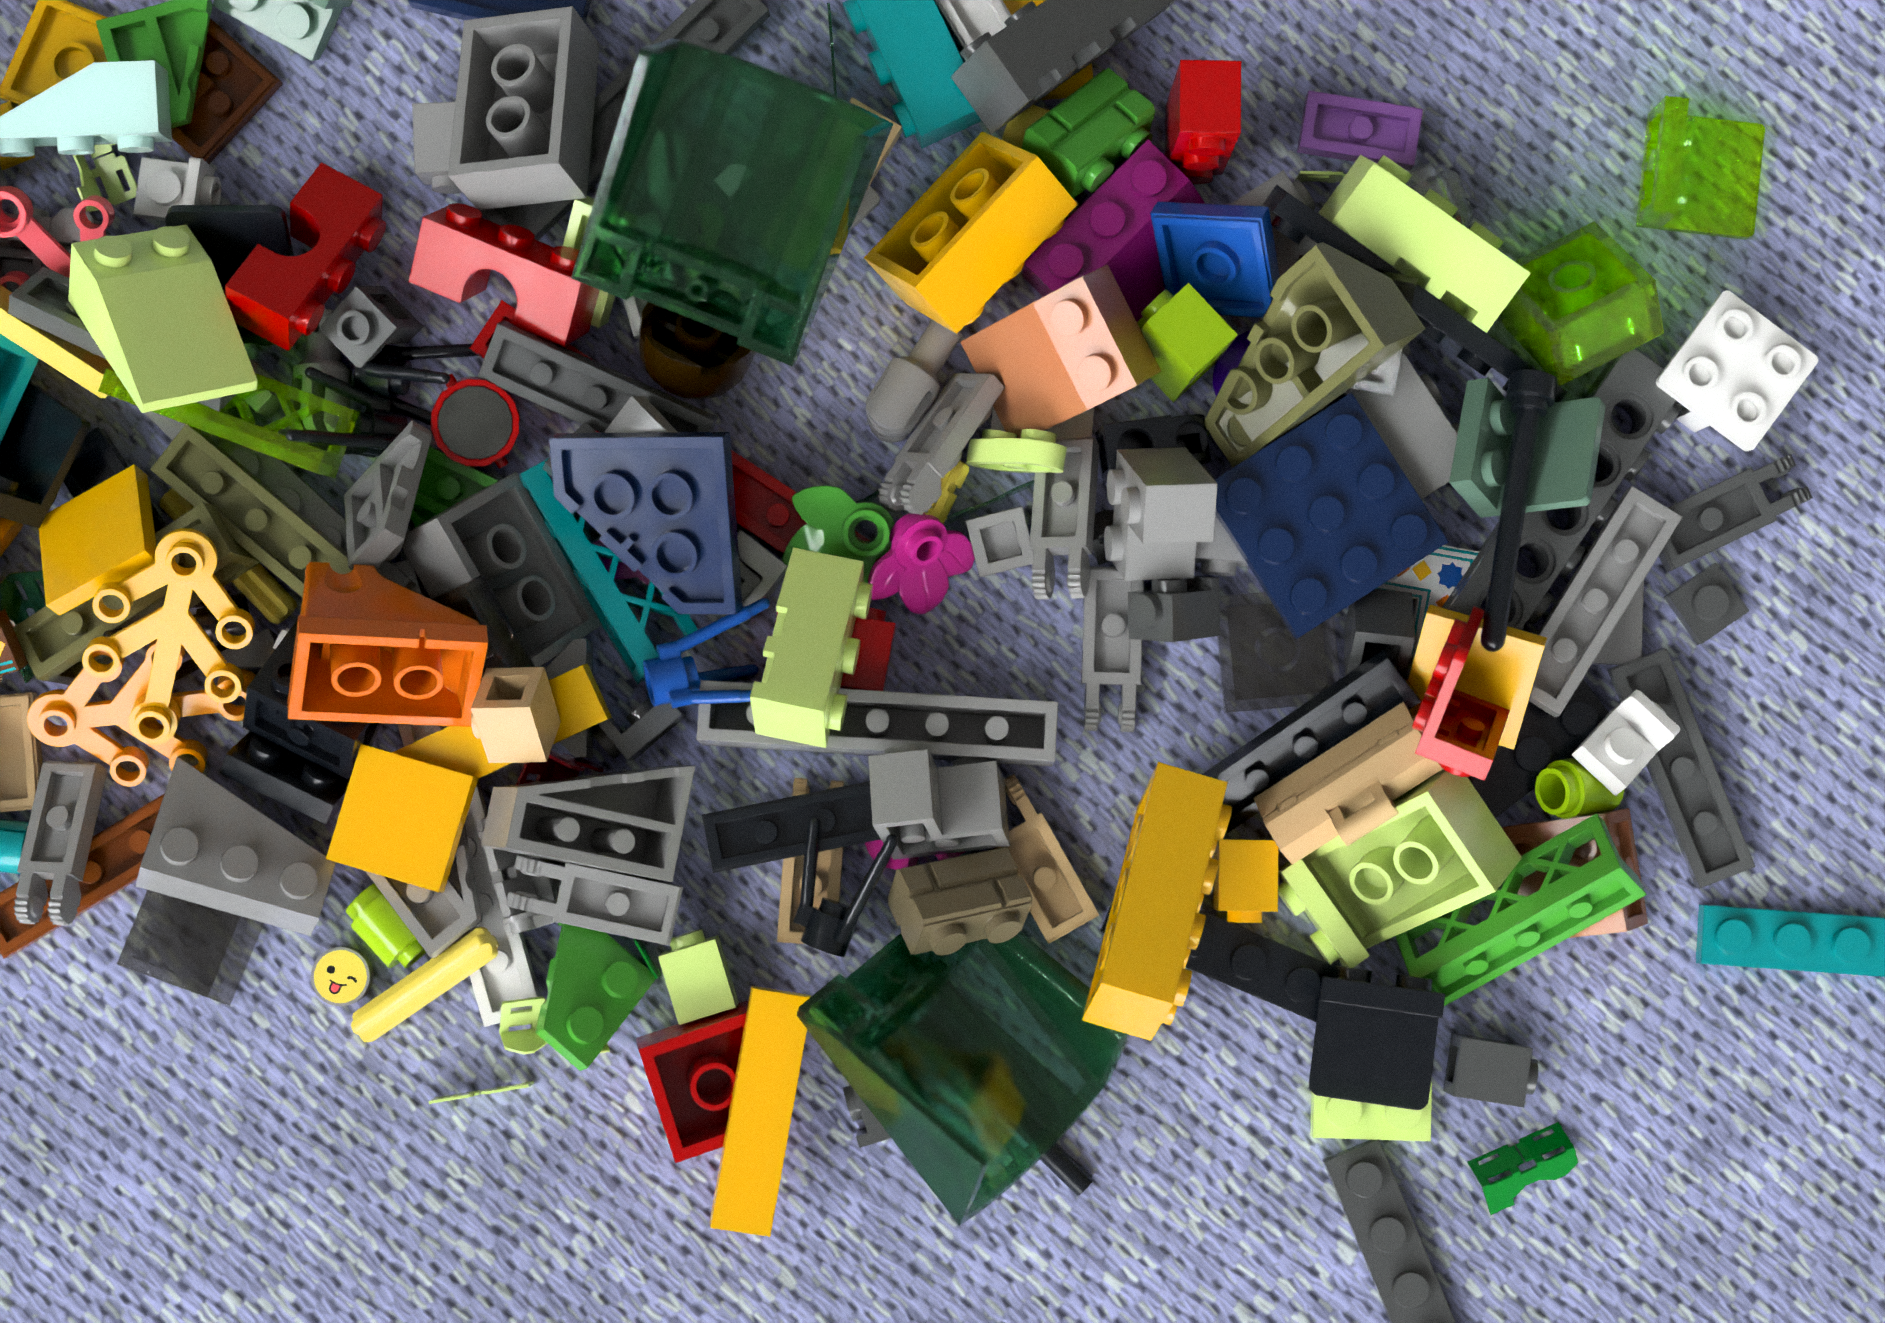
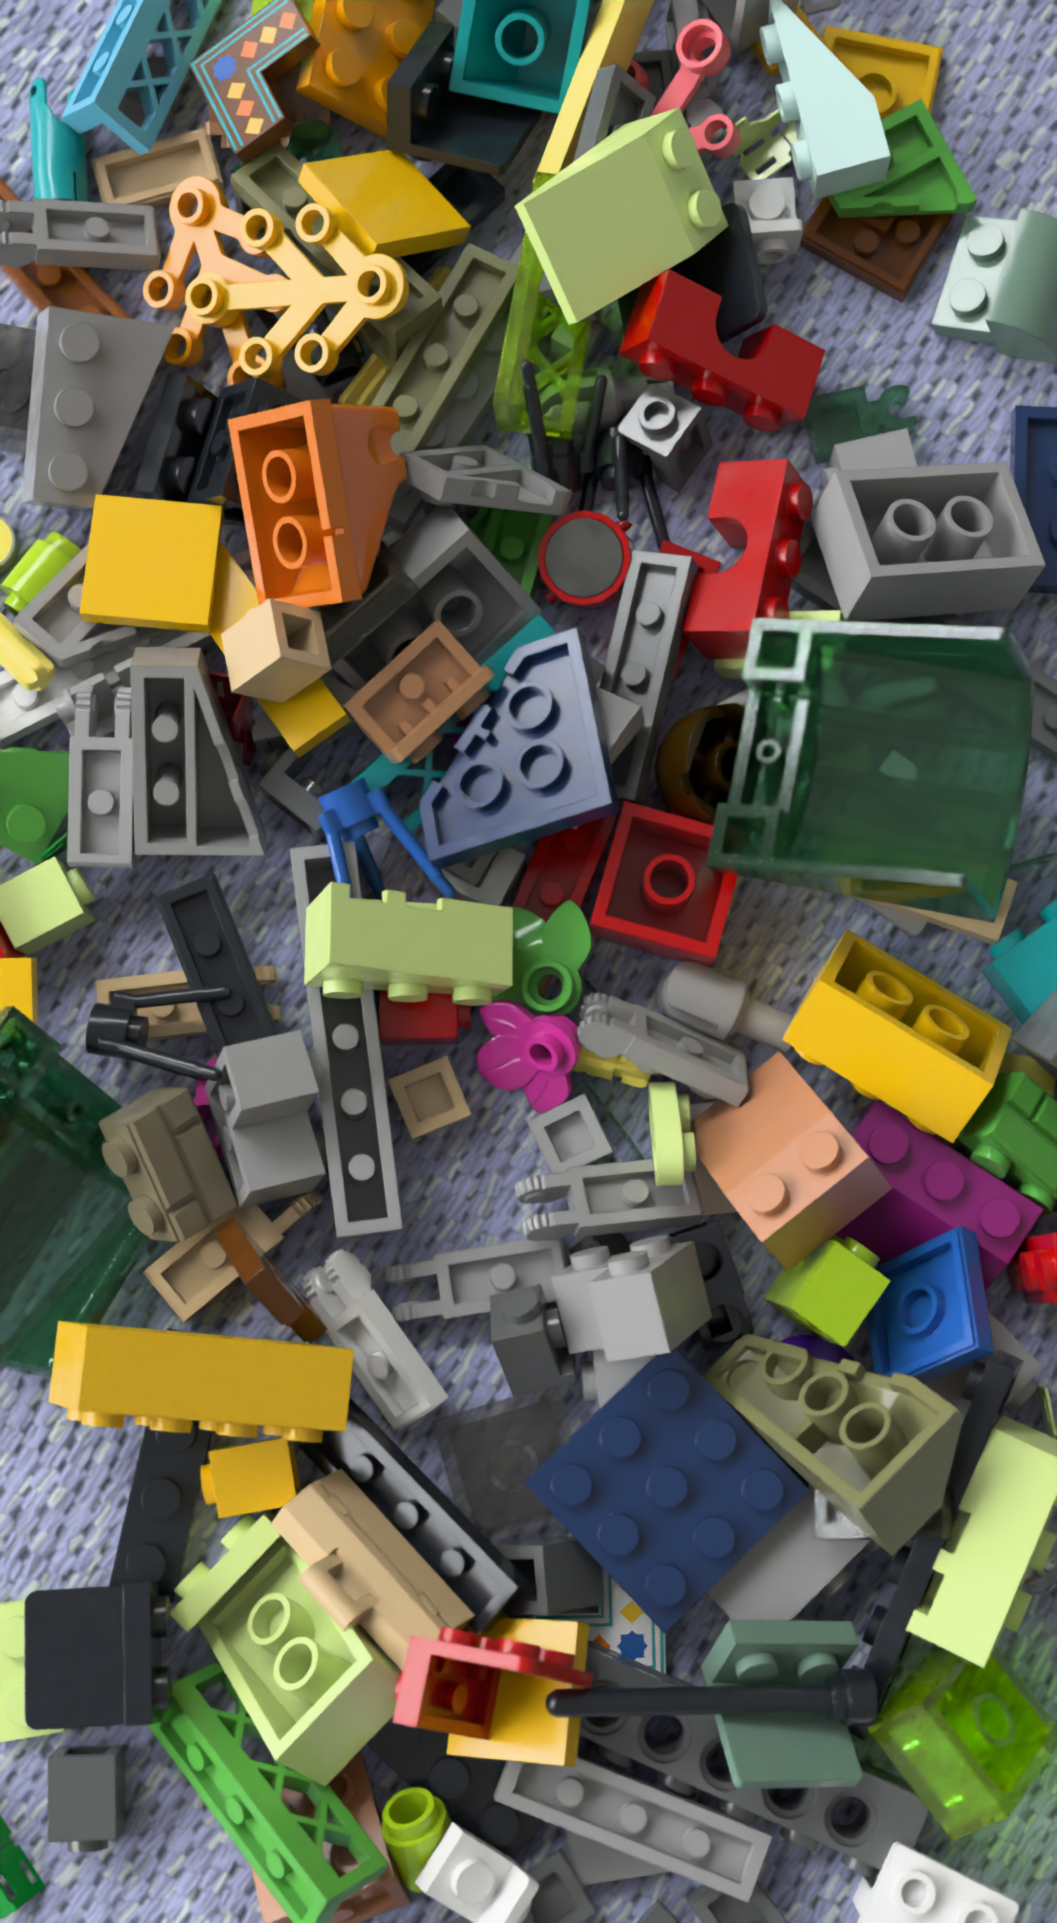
camera: 80 degrees right, 5 degrees down
(389, 153) = (849, 416): none -> clear green plate
(577, 595) = (418, 694): none -> medium nougat bracket
(795, 413) = (659, 888): none -> red brick
(941, 660) = (429, 1098): none -> tan plate
(1080, 830) = (269, 1282): none -> reddish brown tile
(1130, 757) = (382, 1352): none -> white hinge

